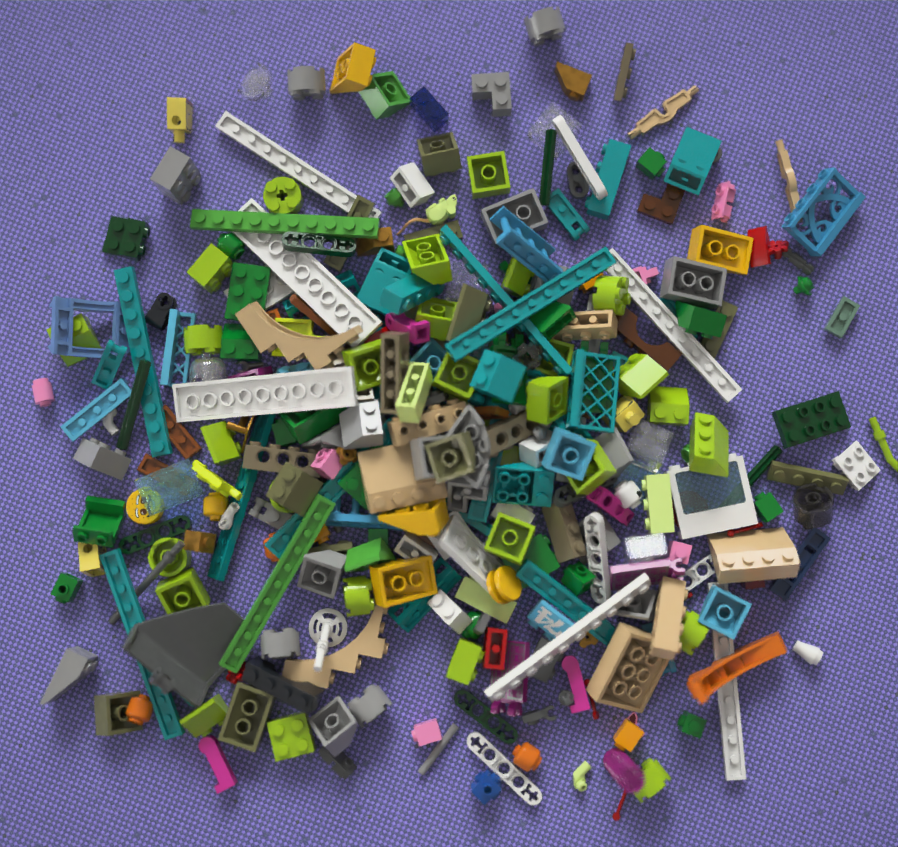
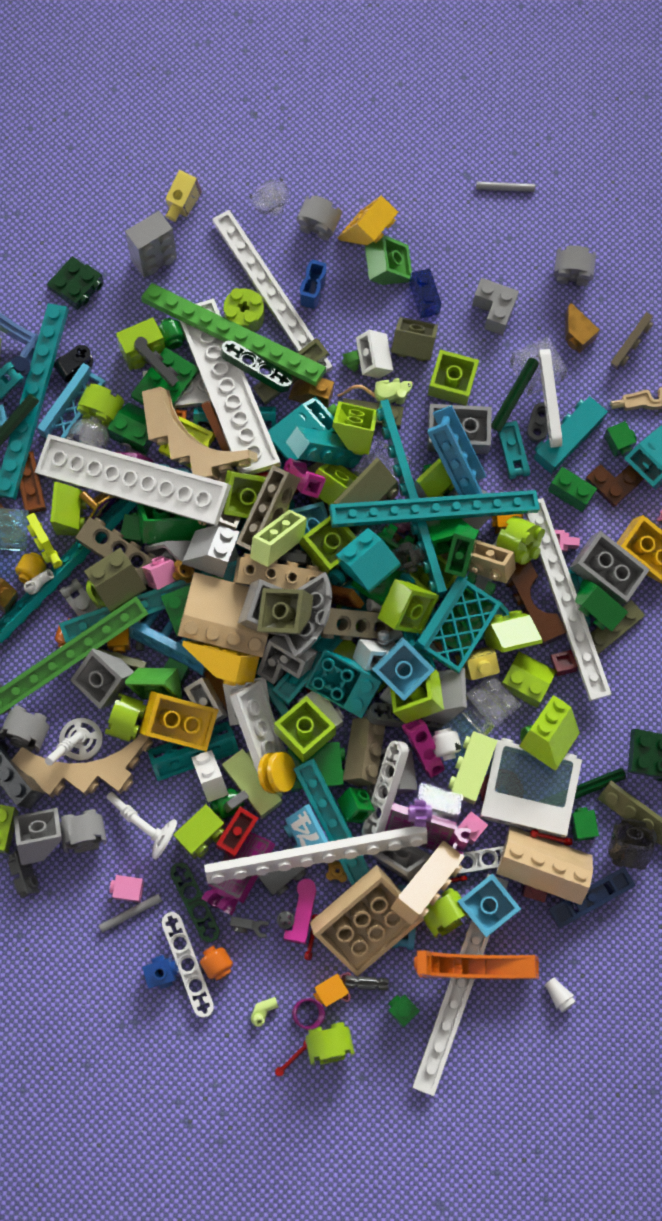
camera: 20 degrees right, 10 degrees down
(119, 336) = (21, 365): none -> dark blue plate
(232, 281) = (155, 361): none -> dark grey plate
(330, 146) = (313, 284): none -> blue brick
(435, 679) = (158, 836): none -> white dish
(570, 330) = (461, 550): none -> green brick
(631, 227) = (572, 489): none -> green brick
(637, 567) = (420, 813): none -> medium lavender gear
(652, 715) = (366, 983): none -> dark grey axle
(690, 379) = (564, 663): none -> dark red plate

